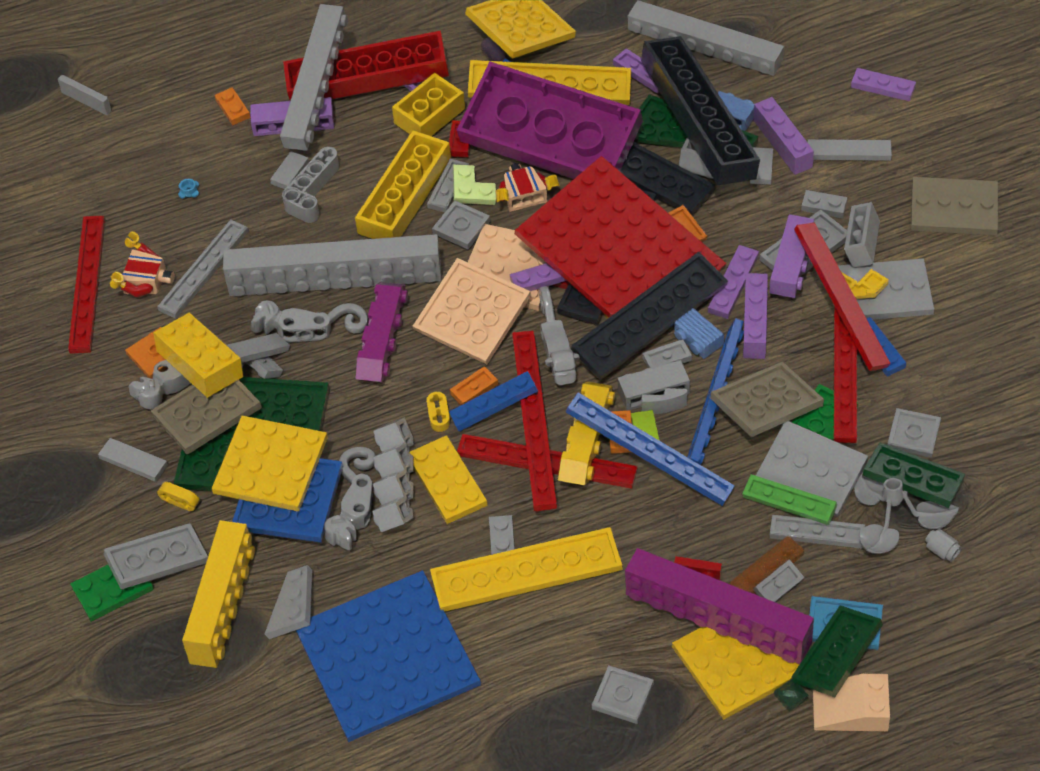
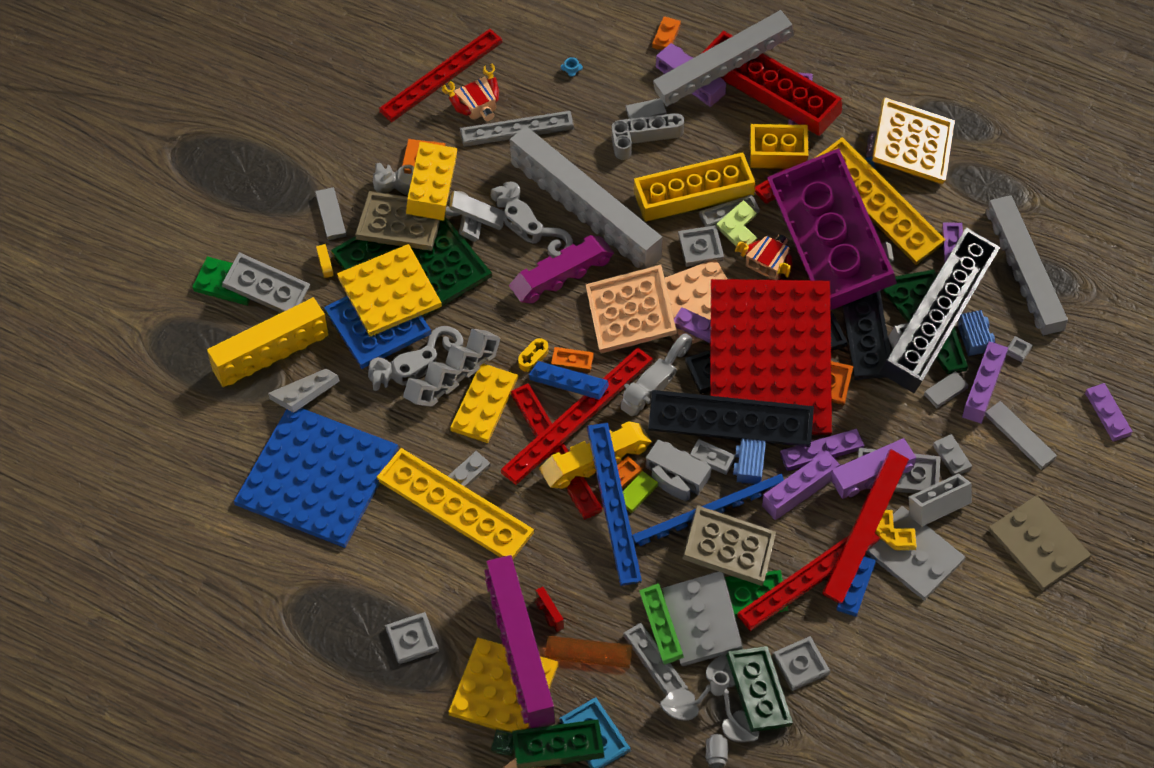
camera: 45 degrees right, 5 degrees up
(774, 92) = (1018, 349): none -> light grey tile
(779, 582) = (585, 668): light grey plate -> none

